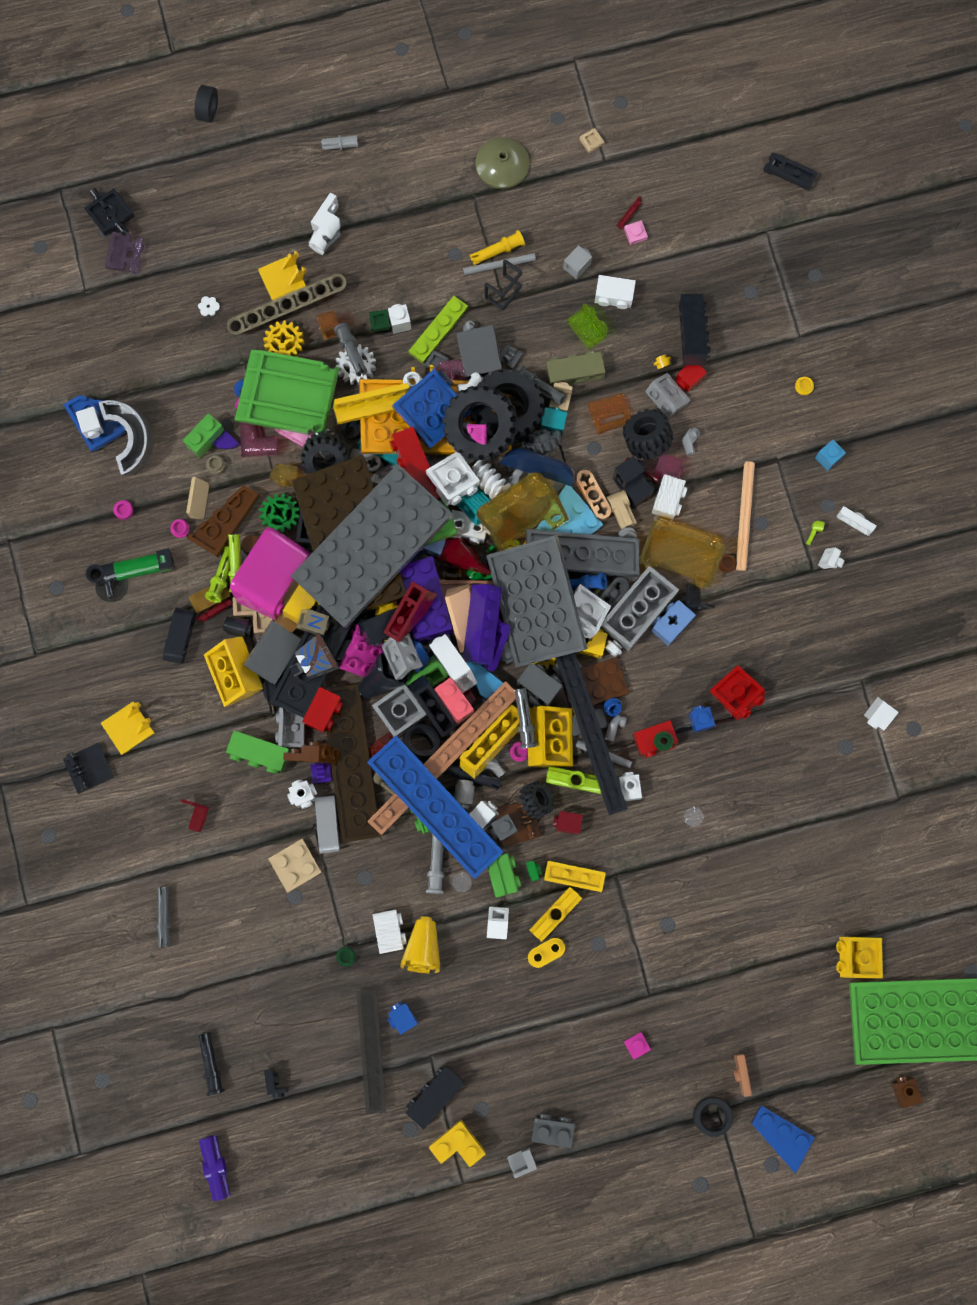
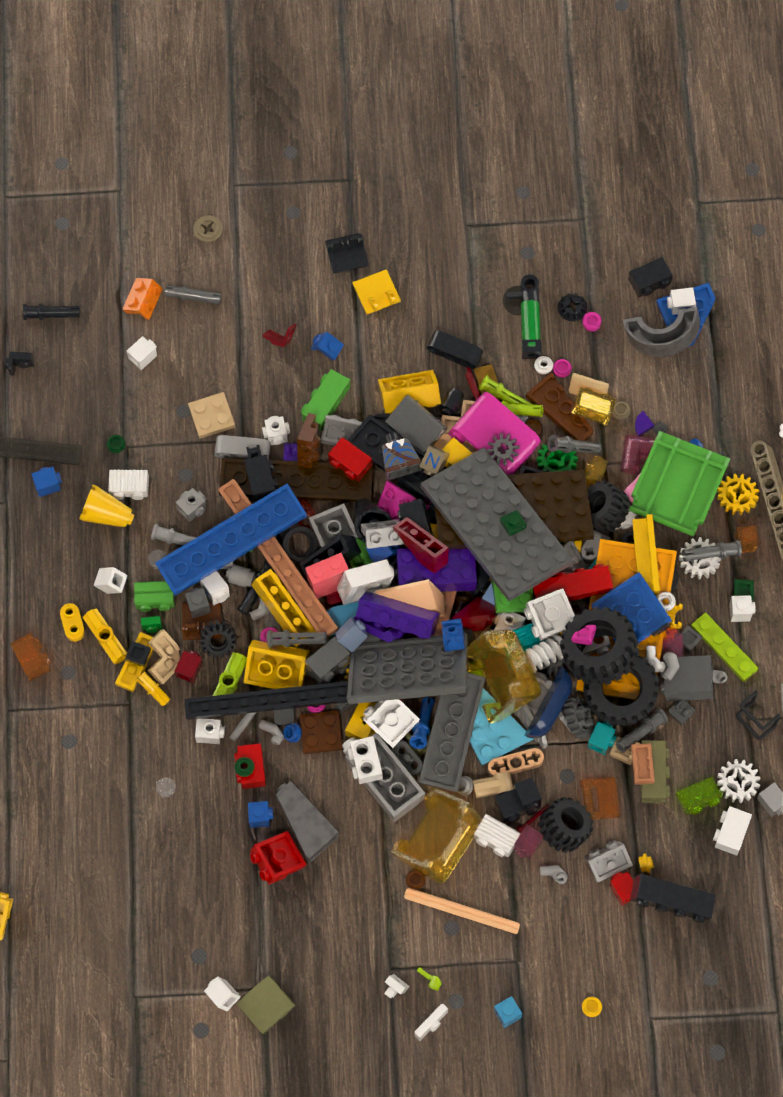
camera: 105 degrees right, 10 degrees down
(66, 461) = (650, 277): none -> black brick
(76, 924) = (206, 222): none -> dark tan gear
(119, 532) = (567, 313): none -> black gear
(176, 969) = (142, 297): none -> orange bracket
(184, 550) = (543, 370): none -> white plate
(196, 765) = (327, 345): none -> blue bracket
(203, 436) = (651, 402): bright green brick -> none
(217, 488) = (593, 405): none -> clear yellow brick
(240, 952) = (142, 352): none -> white brick
(266, 502) = (567, 445): none -> dark grey pin
(291, 551) = (497, 445): none -> dark grey gear
(355, 797) = (259, 474): none -> black brick
(371, 526) = (513, 523): none -> dark green plate
(405, 864) = (191, 504): none -> light grey brick
(474, 364) = (673, 665): none -> light grey arm
(489, 566) = (453, 635): none -> blue brick
(510, 665) = (352, 634): none -> sand blue brick
(561, 300) = (747, 779): none -> white gear
(562, 845) = (169, 656): none -> tan plate
(570, 874) = (138, 654): none -> black plate
(575, 375) = (642, 764): none -> nougat plate
(593, 984) = (30, 657): none -> clear orange brick
(599, 853) = (152, 688): none -> yellow axle
(631, 620) = (369, 759): none -> white brick
(668, 632) = (366, 820): medium blue brick -> none
(693, 599) = (385, 837): black bracket -> none
(700, 671) = (307, 823): none -> flat silver slope
(877, 673) = (266, 1004): none -> olive slope

